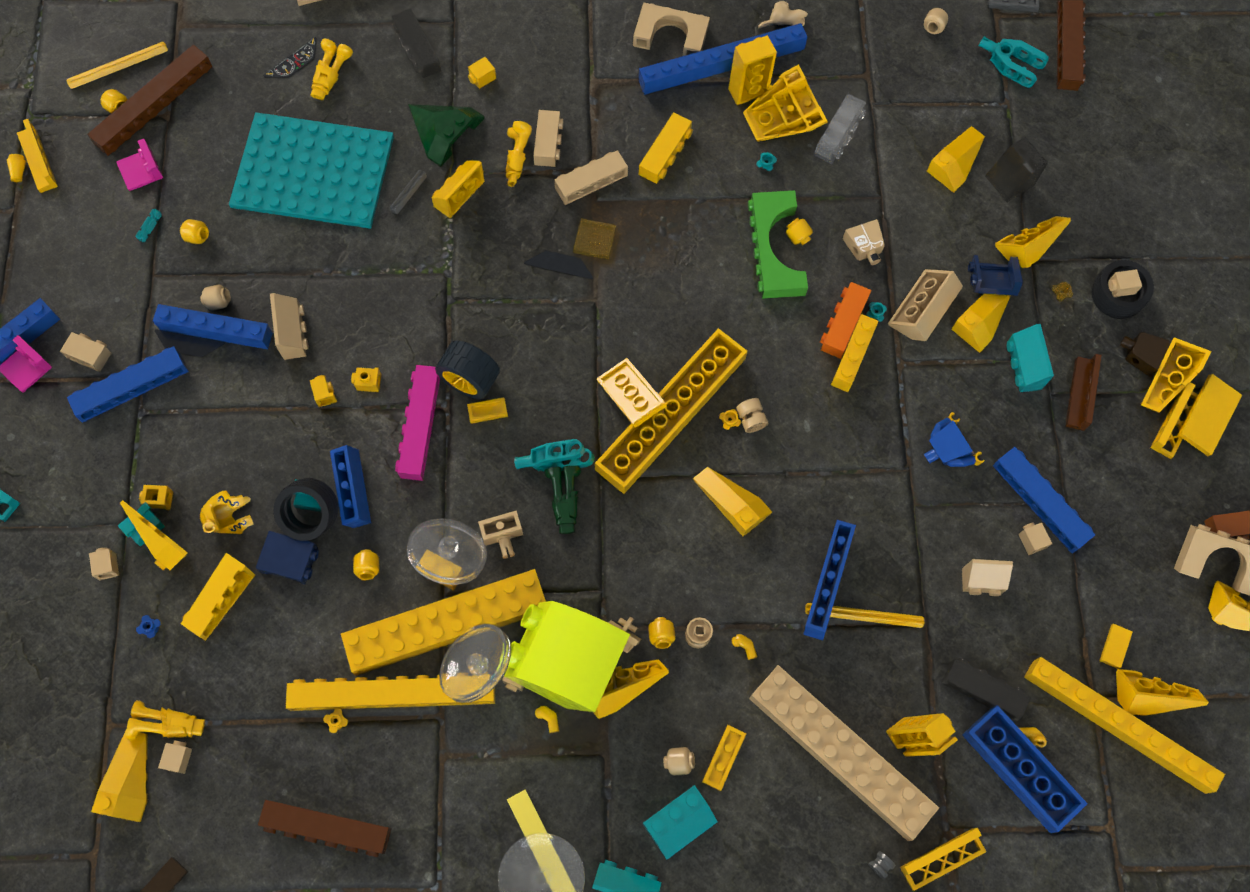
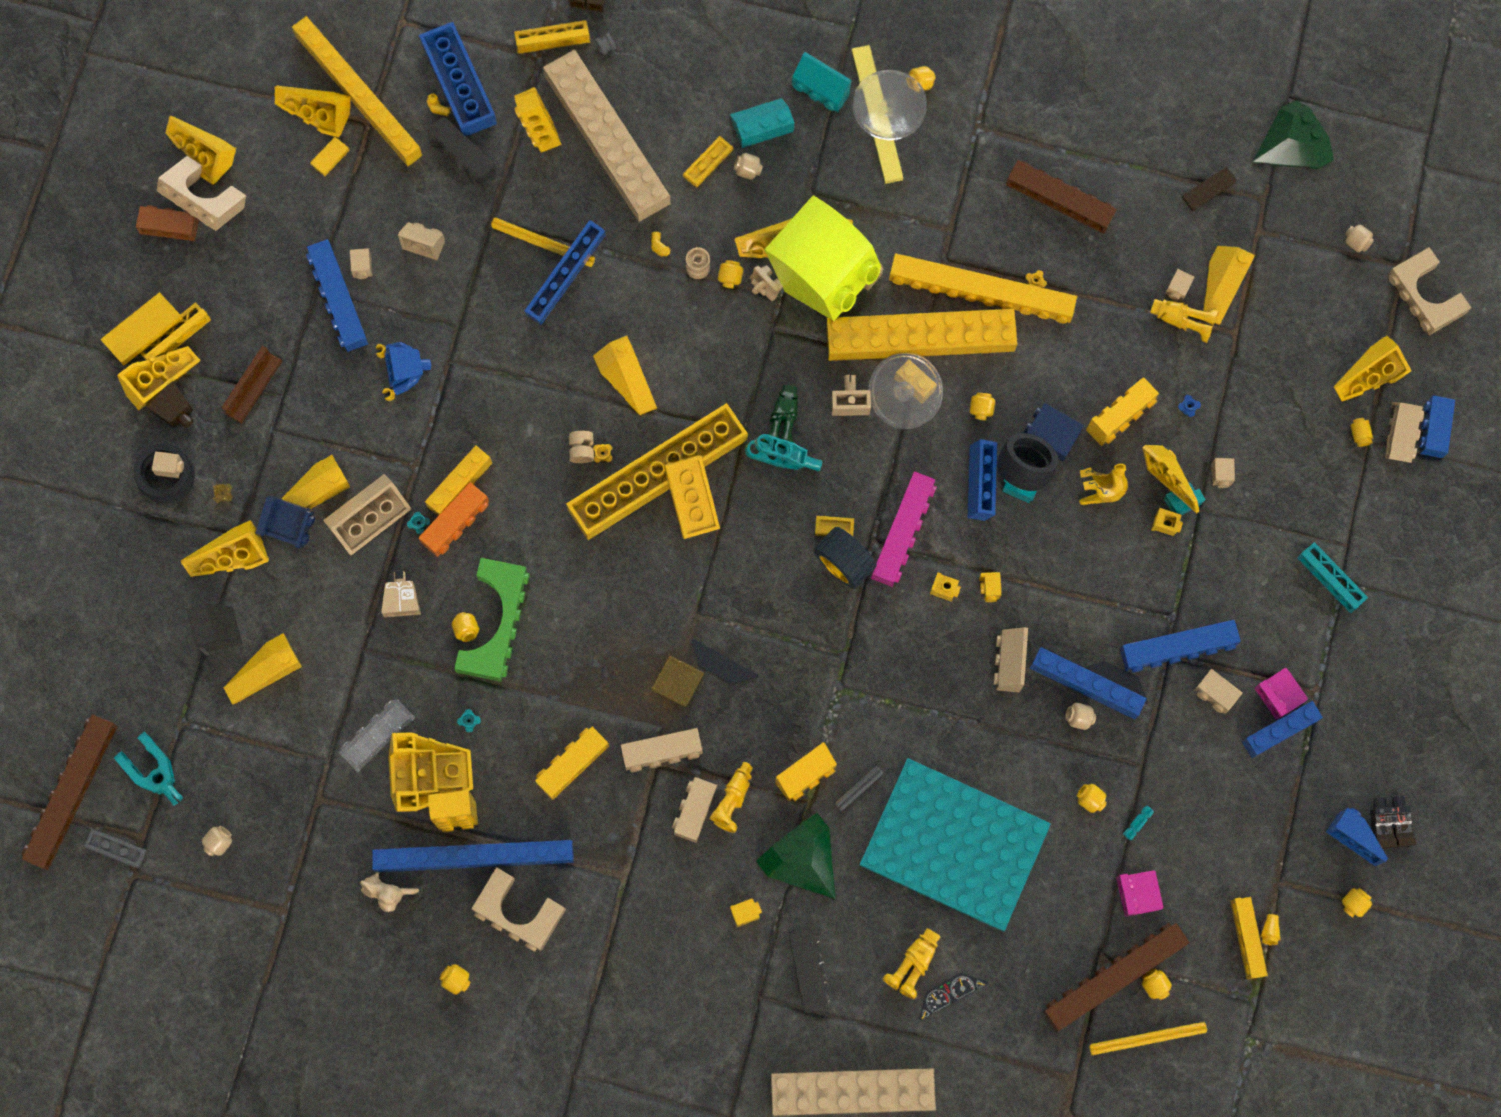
camera: 165 degrees left, 5 degrees up
(475, 663) = (904, 277): clear dish -> none
(1030, 359) = (291, 426): teal slope -> none

